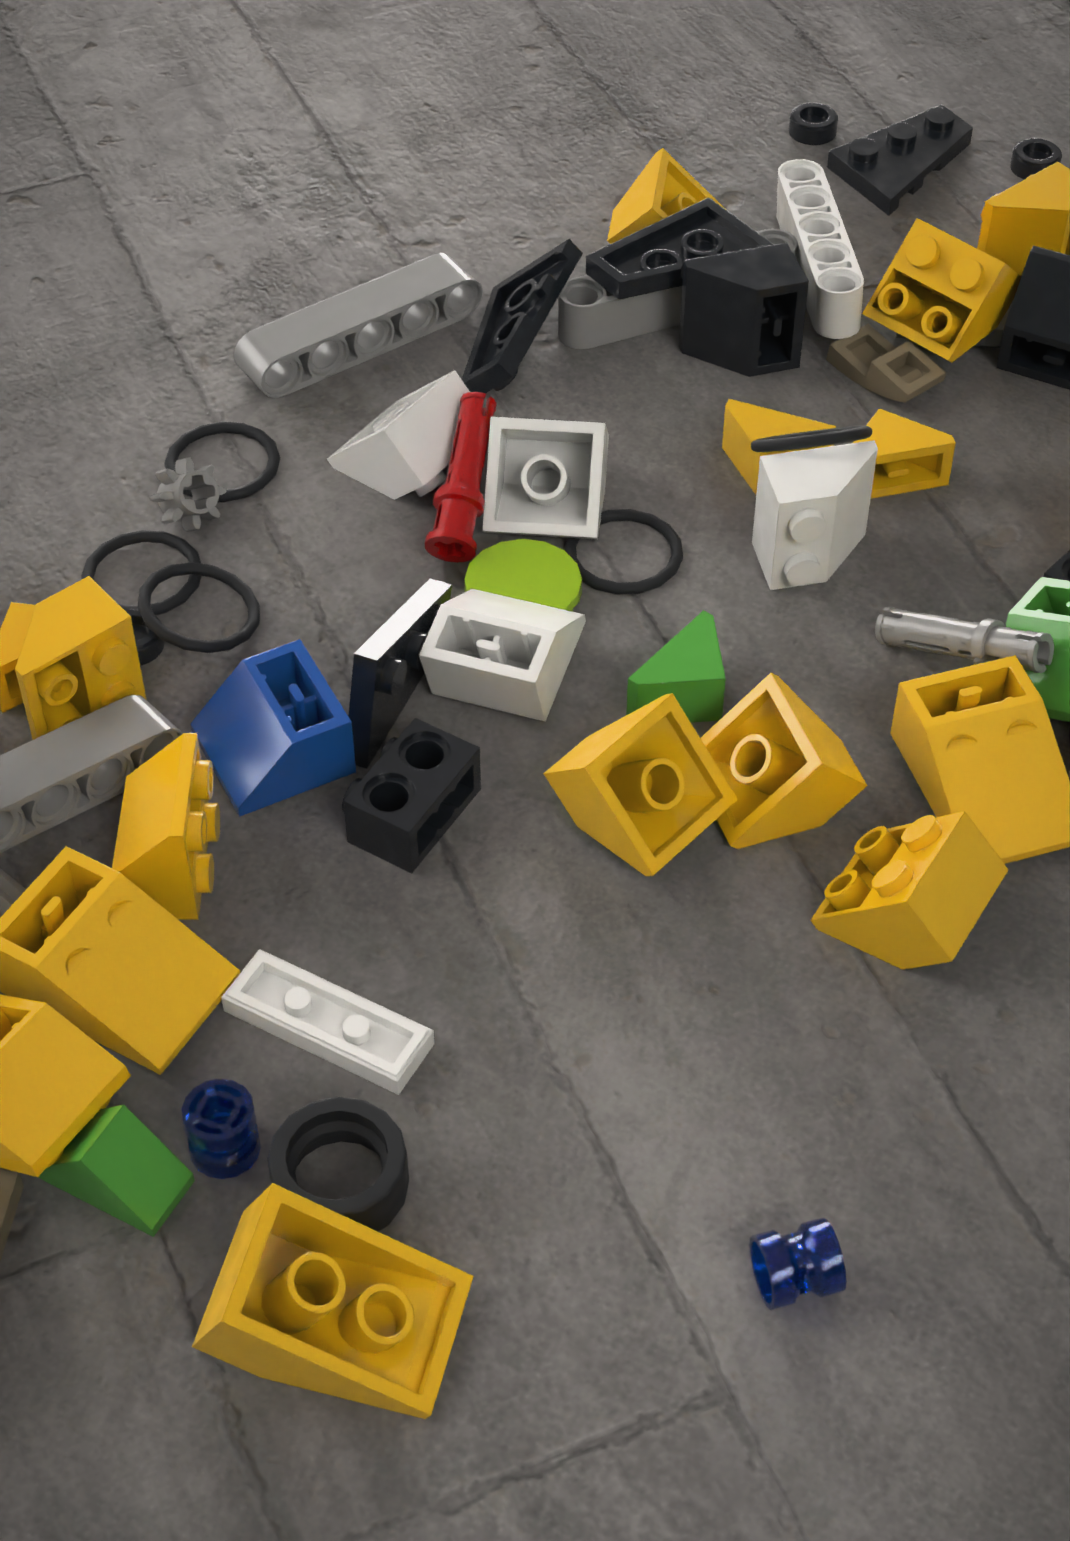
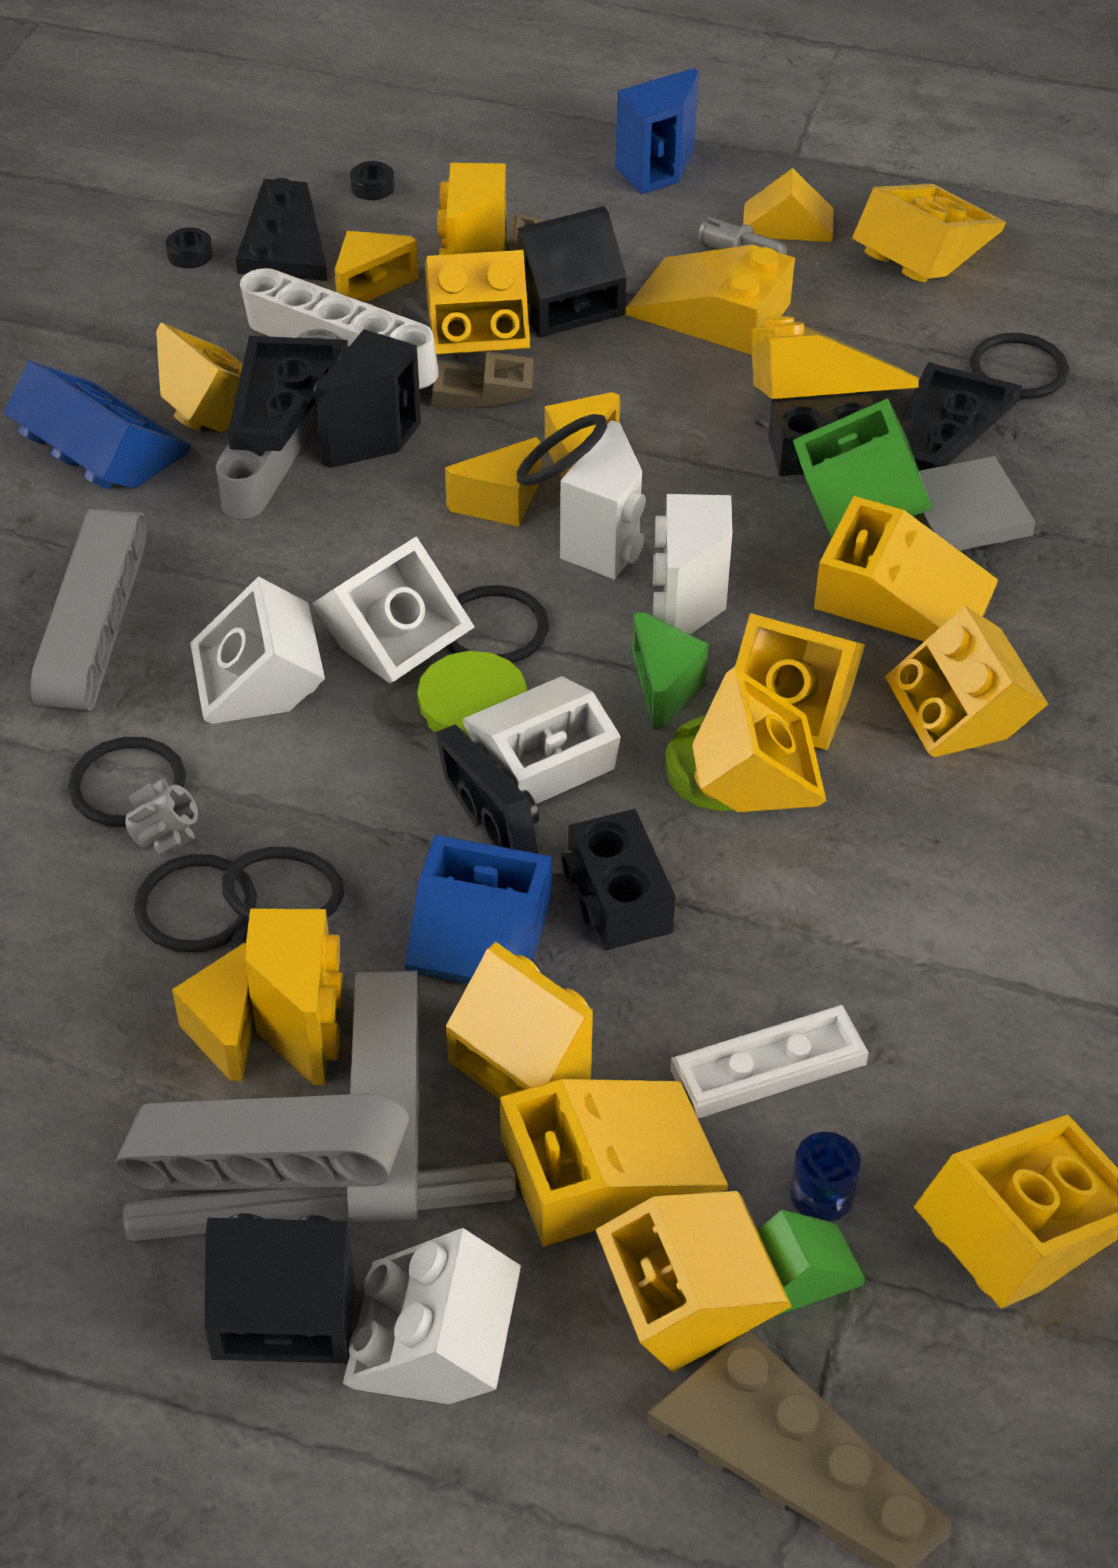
camera: 50 degrees left, 0 degrees up
(351, 1122) = (918, 1090): black tyre -> none
(459, 499) = (363, 668): red pin -> none
(515, 317) = (207, 519): black wing -> none
(542, 197) = (91, 427): none -> blue slope
(806, 611) = (694, 560): none -> white slope
(896, 211) = (375, 264): none -> yellow slope
(964, 639) = (798, 511): light grey pin -> none

